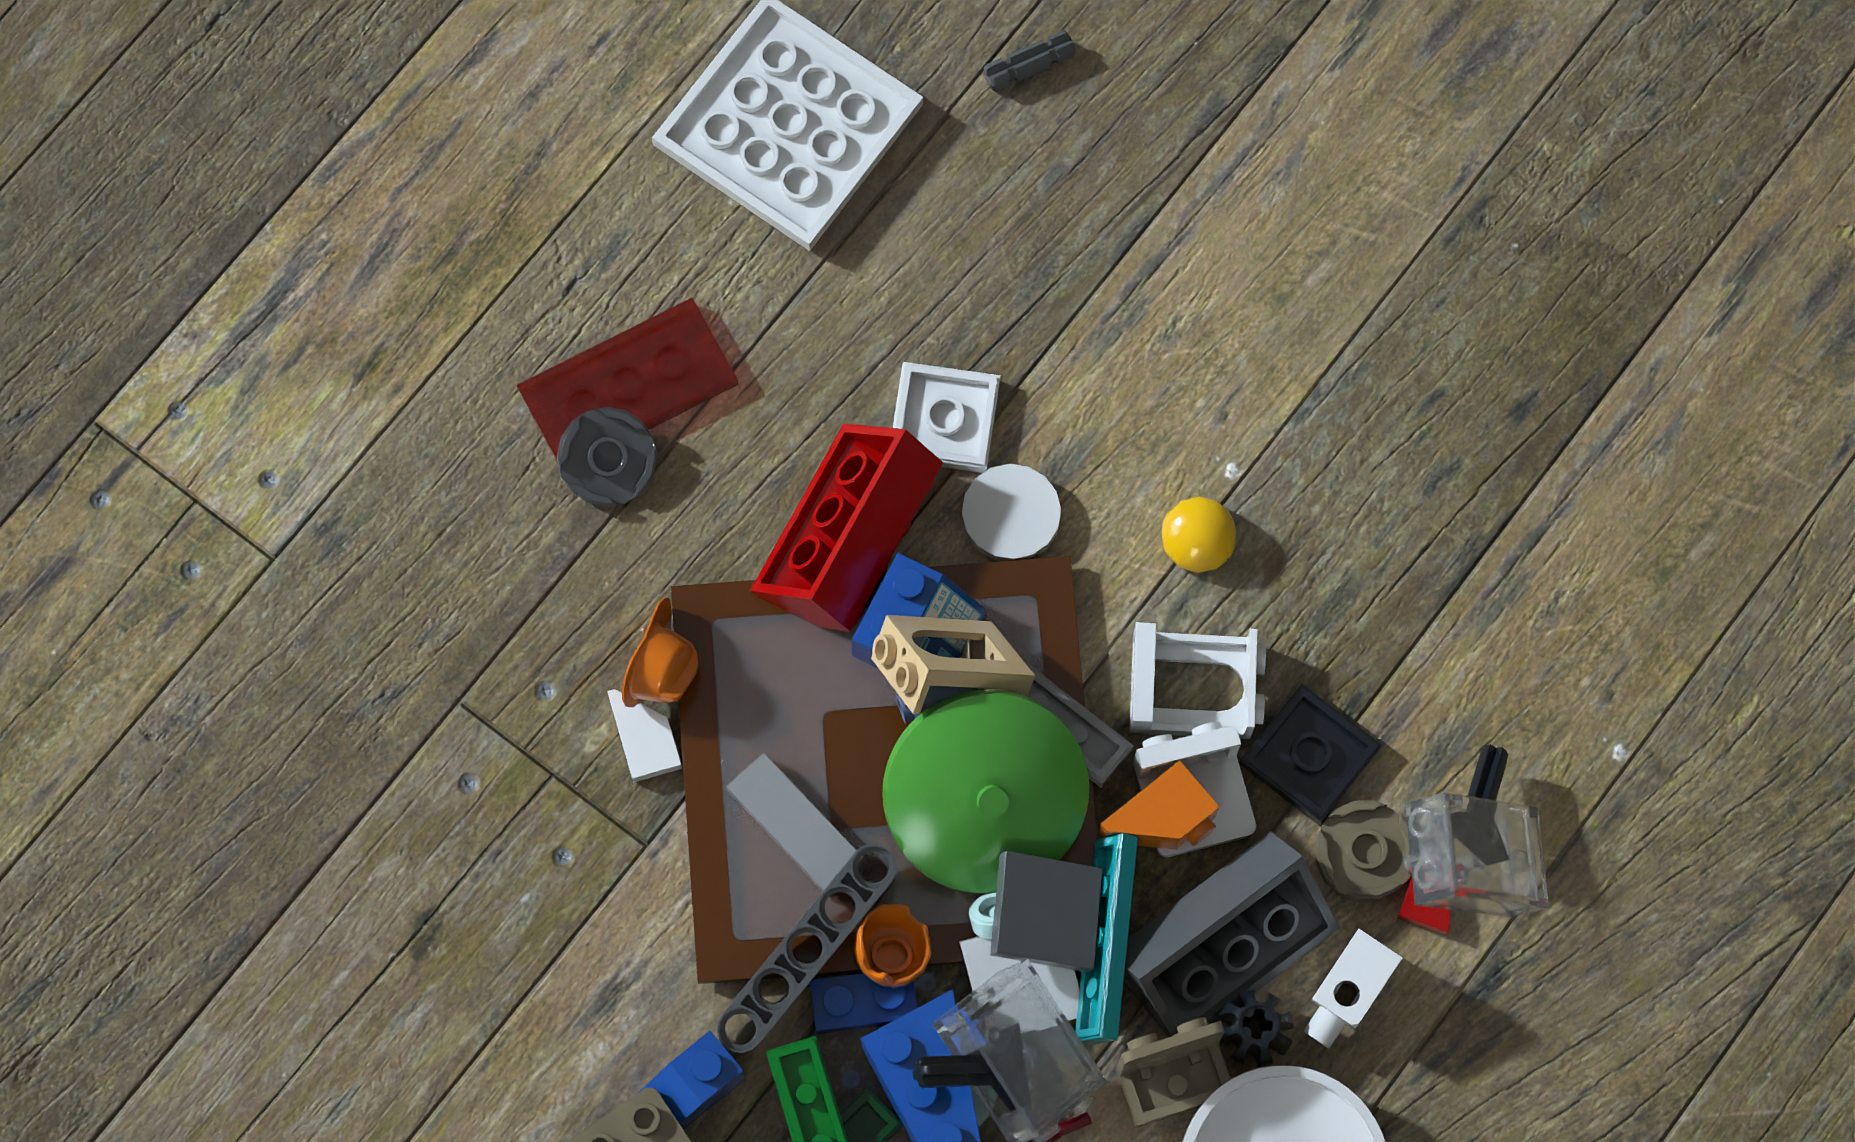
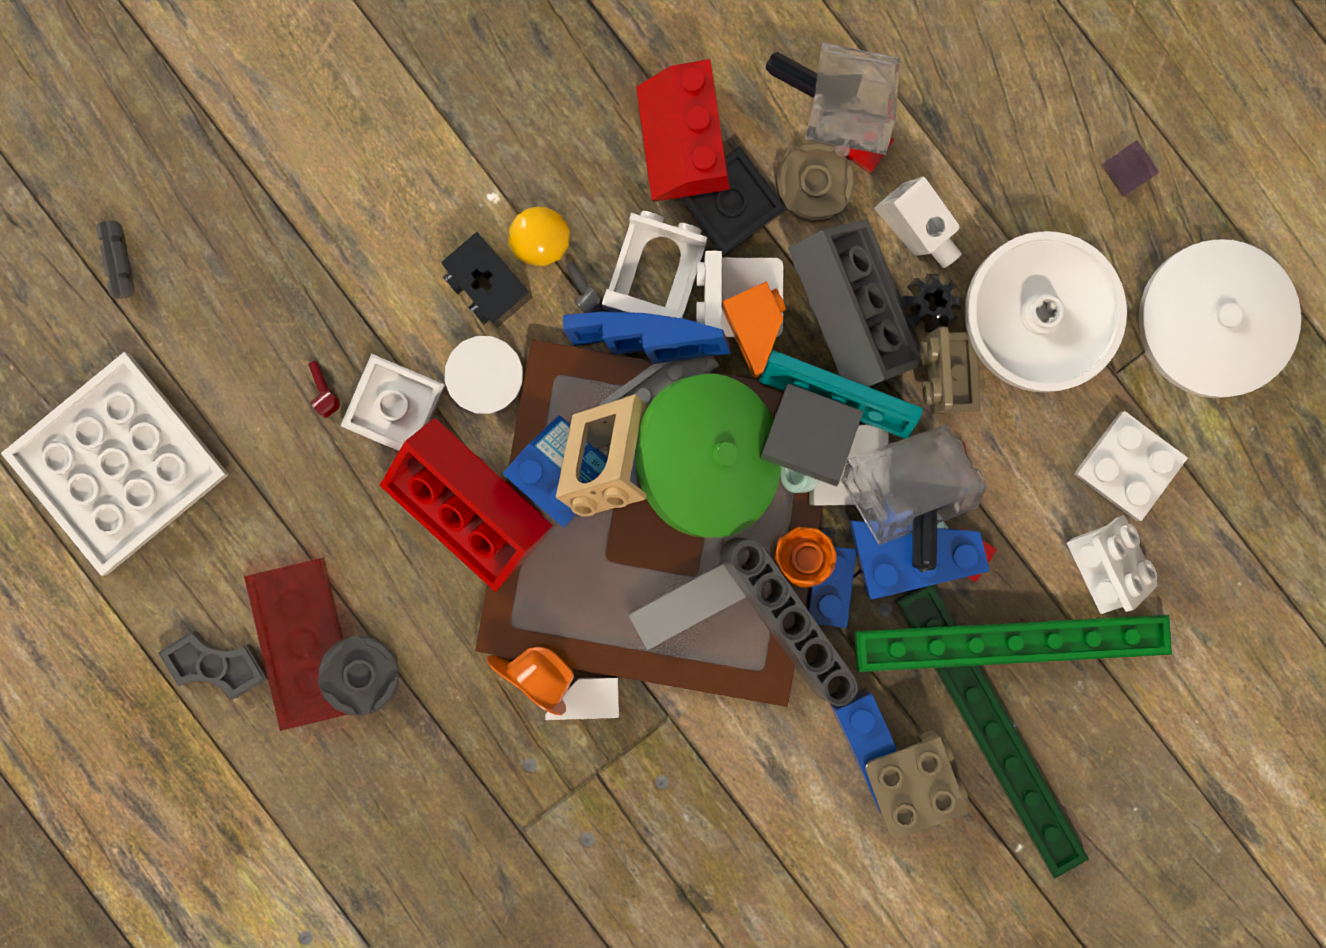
camera: 75 degrees left, 15 degrees up
(575, 313) = (197, 660): none -> dark grey tile
(928, 340) = (326, 402): none -> dark red hand
(1115, 695) = (658, 335): none -> blue slope
(1118, 511) = (478, 259): none -> black brick
(1141, 612) = (589, 300): none -> dark grey hand
(1377, 672) = (682, 132): none -> red slope

